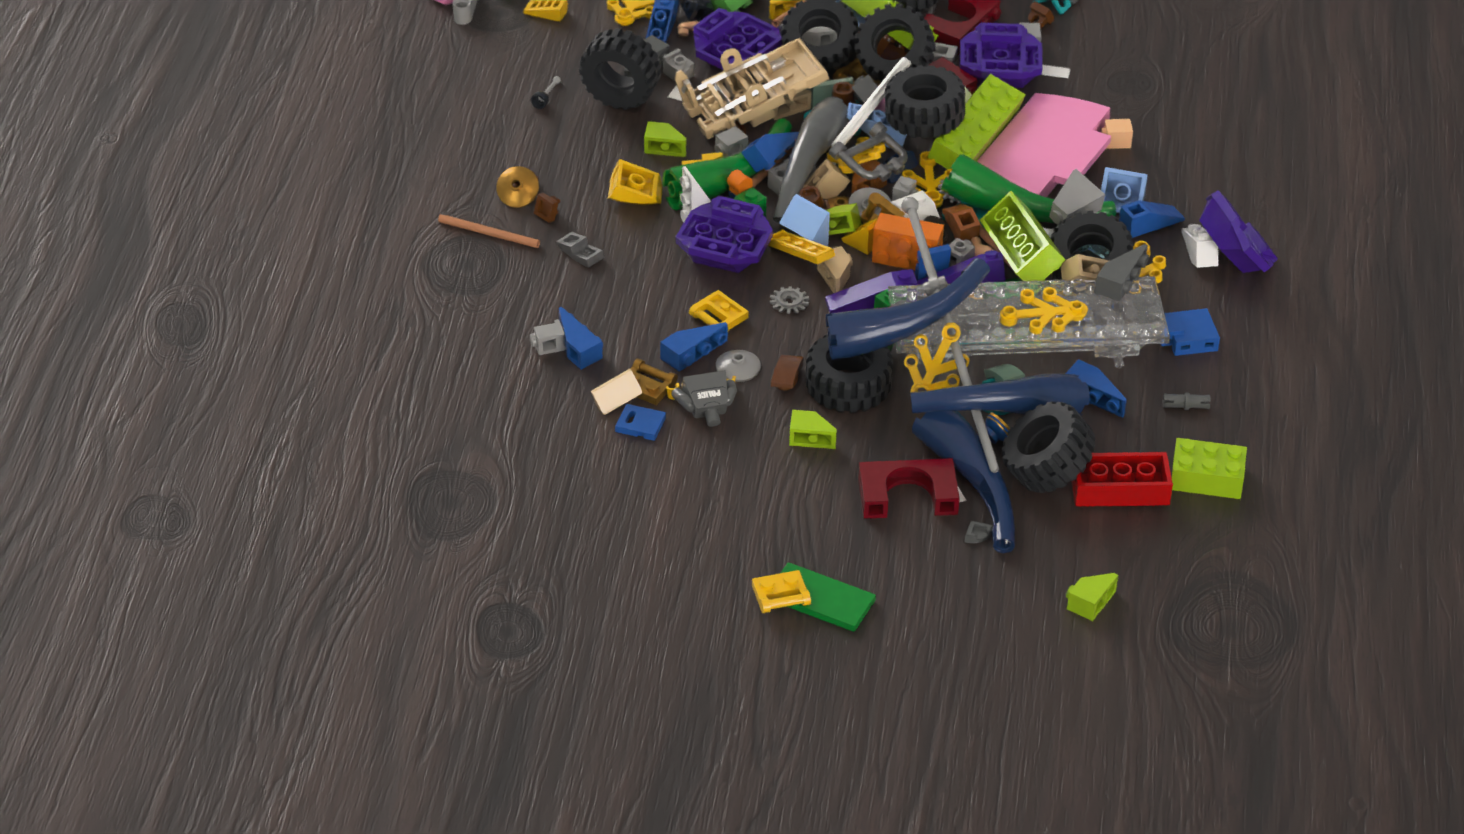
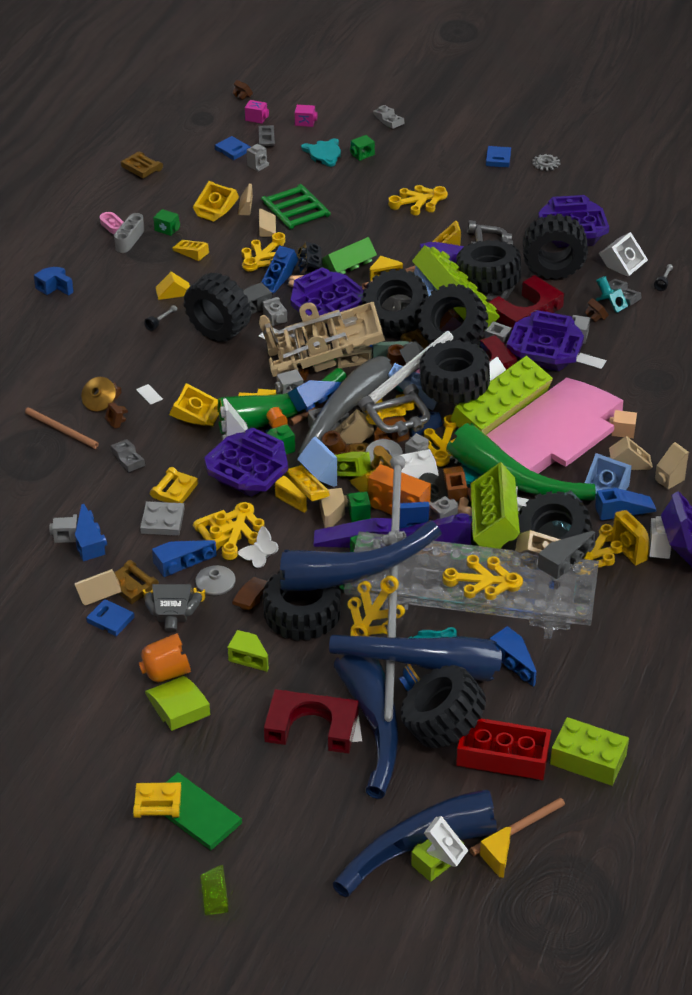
camera: 15 degrees right, 0 degrees up
(400, 65) = (52, 279): none -> blue brick
(545, 55) = (171, 287): none -> yellow slope
(571, 179) = (149, 394): none -> white sticker
(650, 310) = (162, 518): none -> light grey plate
(655, 278) = (178, 491): none -> yellow plate
(664, 140) = (235, 372): lime slope -> none
(727, 451) = (164, 659): none -> orange cylinder
(742, 288) = (243, 512): none -> yellow plant
(758, 493) = (179, 702): none -> lime slope
(775, 258) = (290, 494): none -> yellow slope
(778, 324) = (261, 549): none -> white animal
(779, 301) = (277, 524): light grey gear -> none
(866, 263) = (359, 506): none -> green slope
(878, 667) = (214, 891): none -> clear neon green slope
(978, 532) = (358, 774): dark grey tile -> none
(1004, 372) = (438, 628): sand green slope -> none
(1076, 196) = (558, 476): light grey slope -> none
(1100, 553) = (467, 815): none -> dark blue brick
(1102, 576) = (445, 843): none -> white slope
(1135, 161) = (631, 454): none -> tan slope
(1150, 579) = (495, 850): none -> yellow slope
(1160, 553) = (528, 820): none -> nougat piece
(1175, 246) = (632, 535): none -> yellow slope
(1186, 401) = (595, 681): dark grey pin -> none
(1188, 170) = (672, 466): none -> tan slope
(1191, 329) = (620, 616): blue piece -> none

